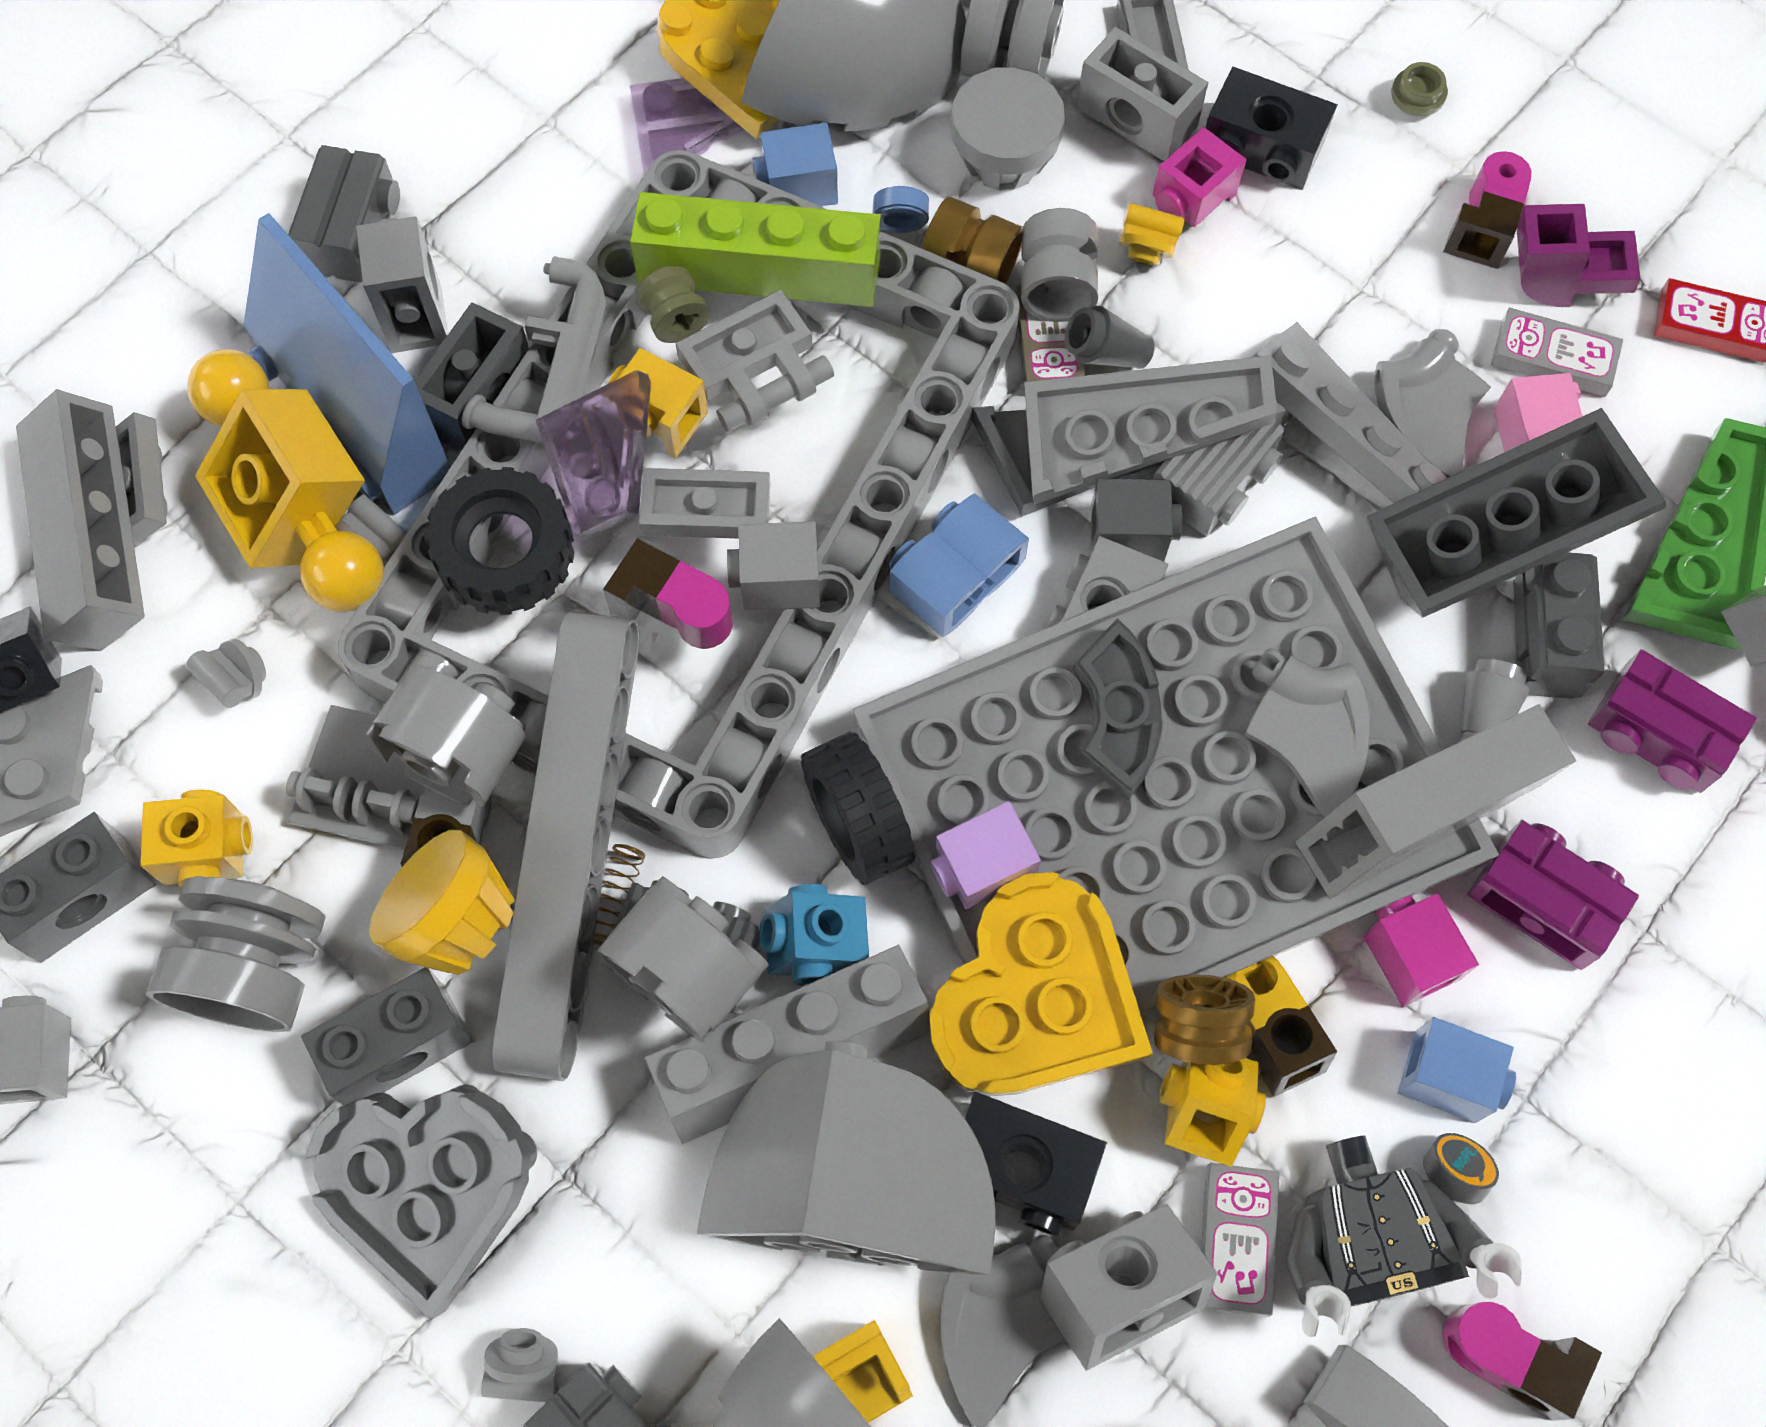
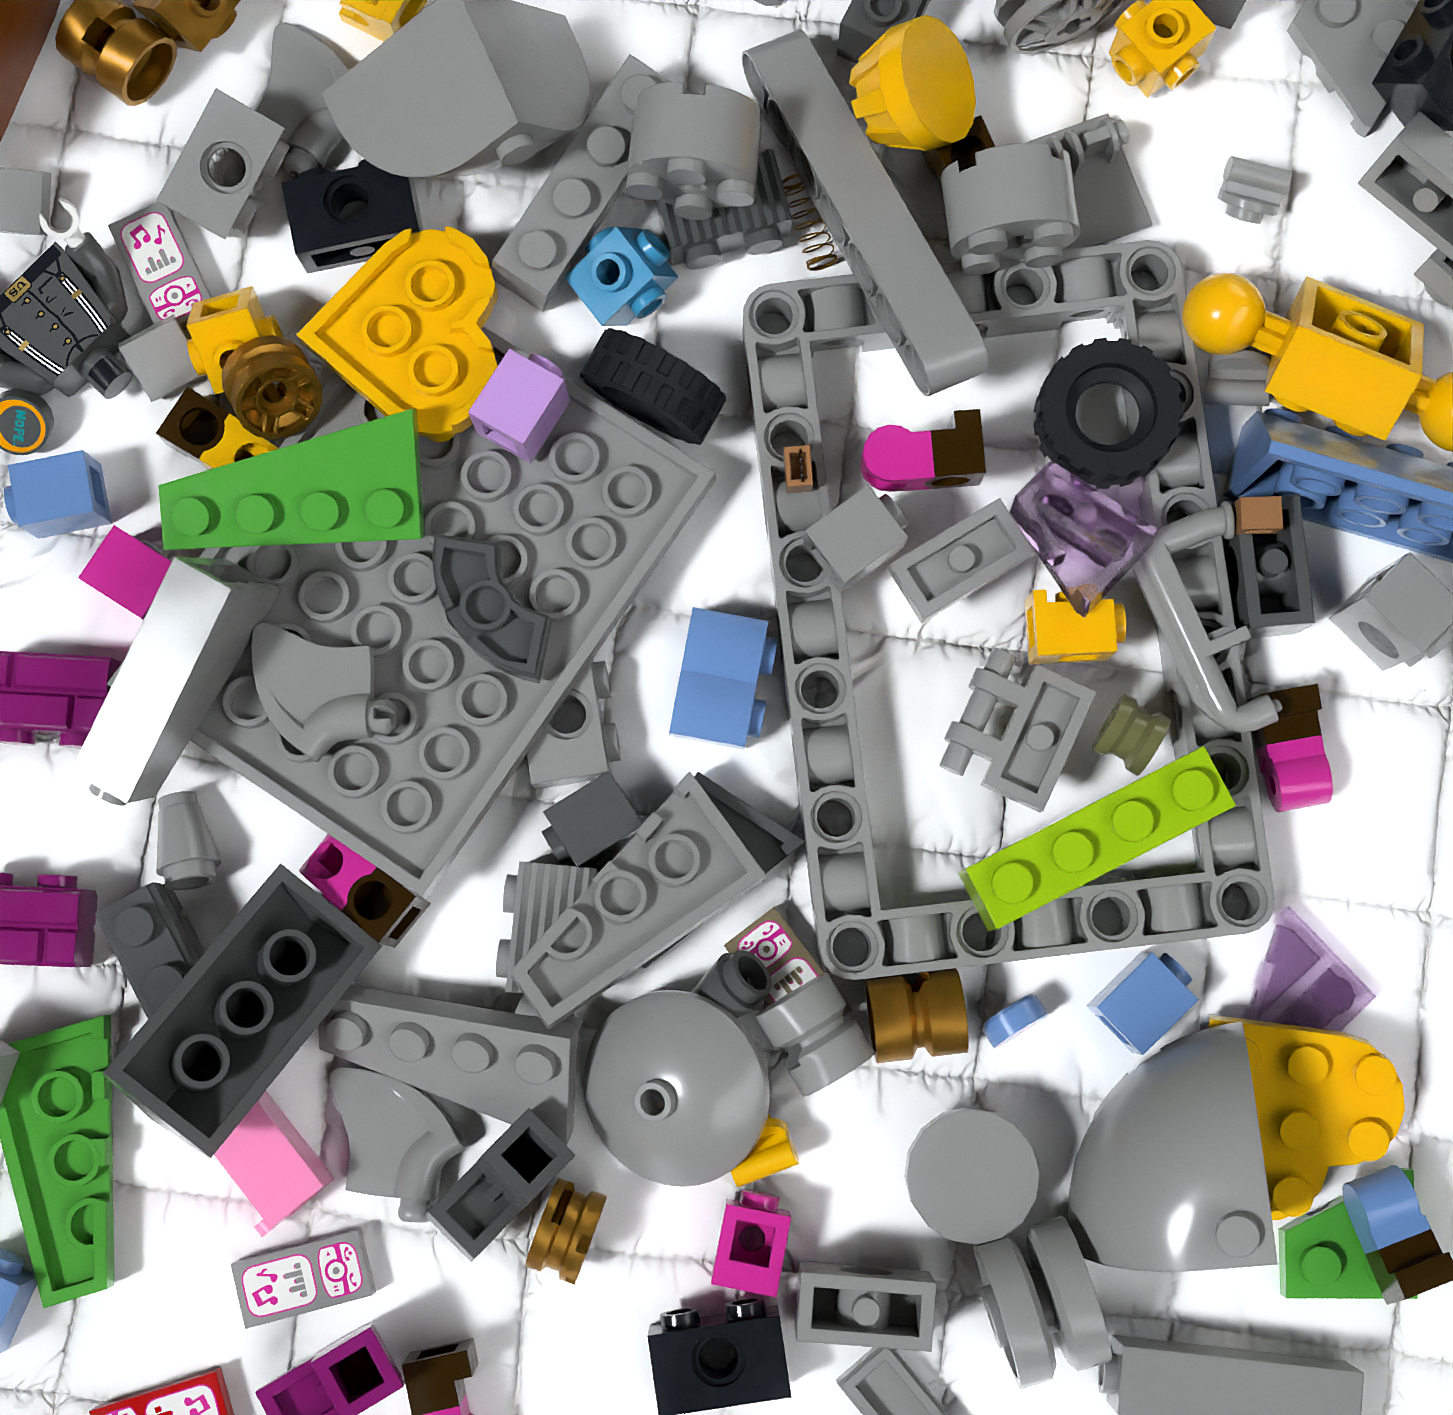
camera: 150 degrees right, 15 degrees up
(449, 390) = (1258, 515): none -> medium nougat piece
(559, 236) = (1293, 752): none -> dark pink leg
(783, 657) = (798, 469): none -> medium nougat piece
(1186, 296) = (703, 1069): none -> light grey dish
(1210, 889) = (320, 490): none -> bright green wing
(1290, 1145) = (159, 358): none -> light grey tile
(1333, 258) = (565, 1230): none -> pearl gold wheel
(1359, 317) = (499, 1185): none -> dark grey brick
(1369, 572) = (363, 892): none -> leg

